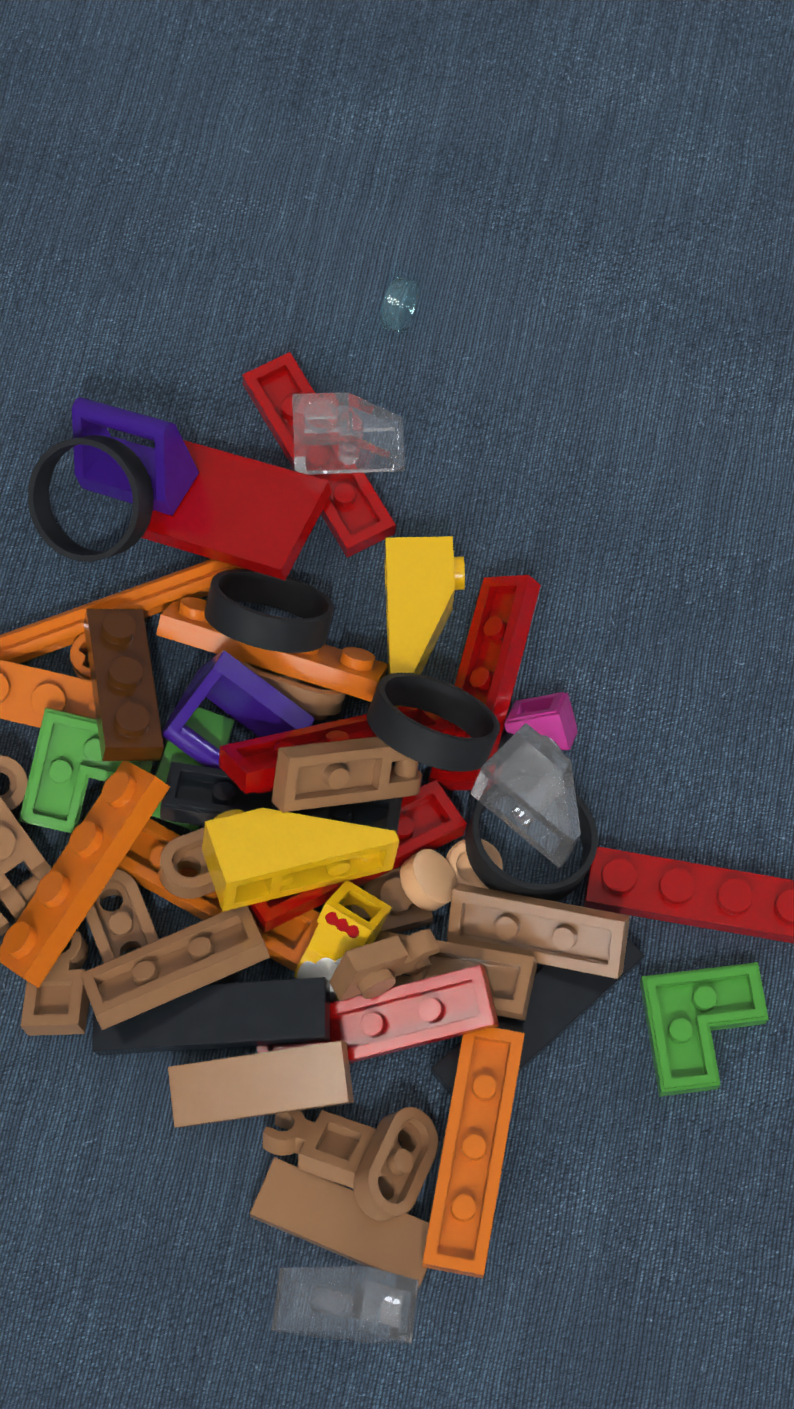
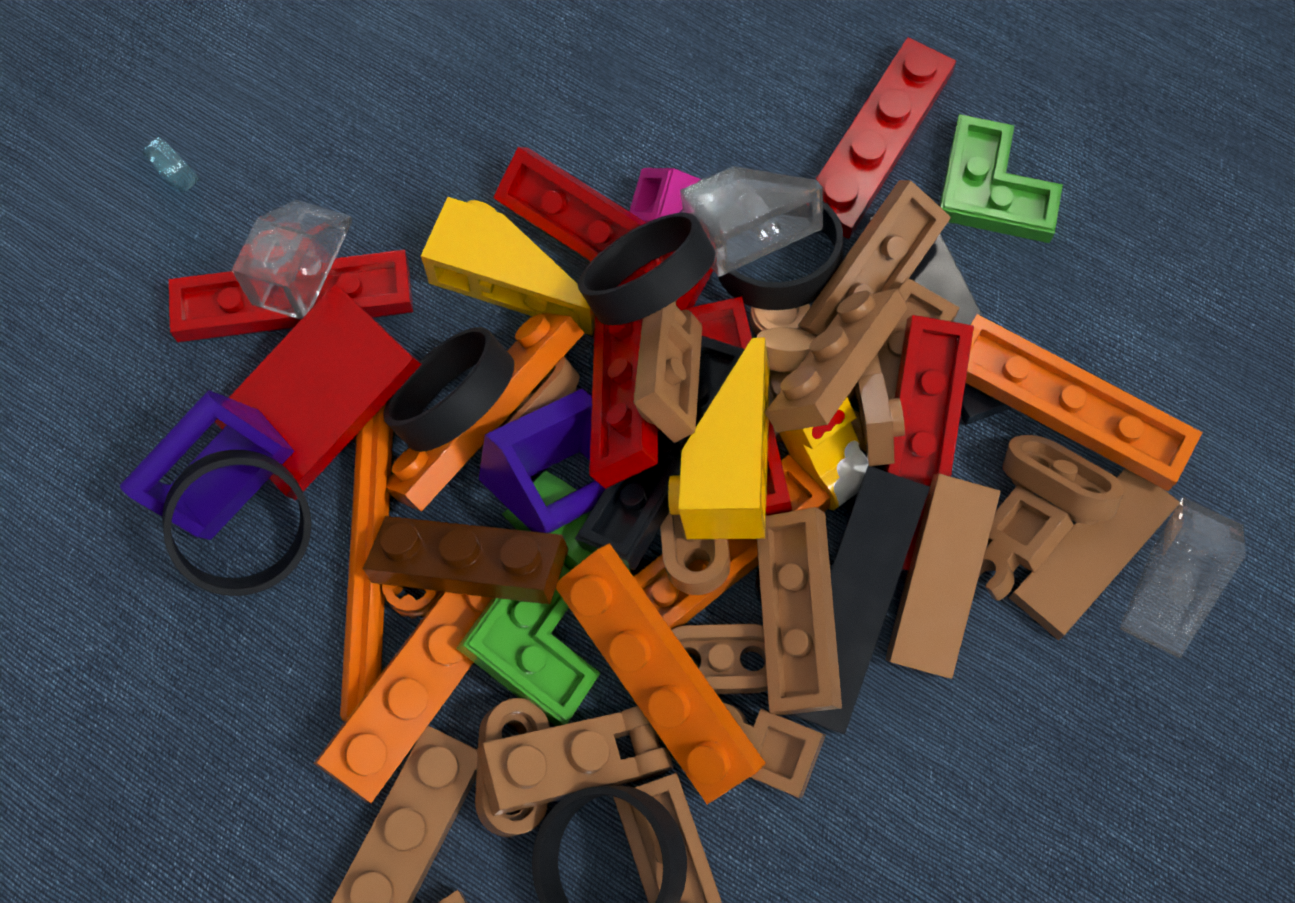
camera: 65 degrees left, 0 degrees up
(411, 913) = (836, 360): none -> medium nougat plate

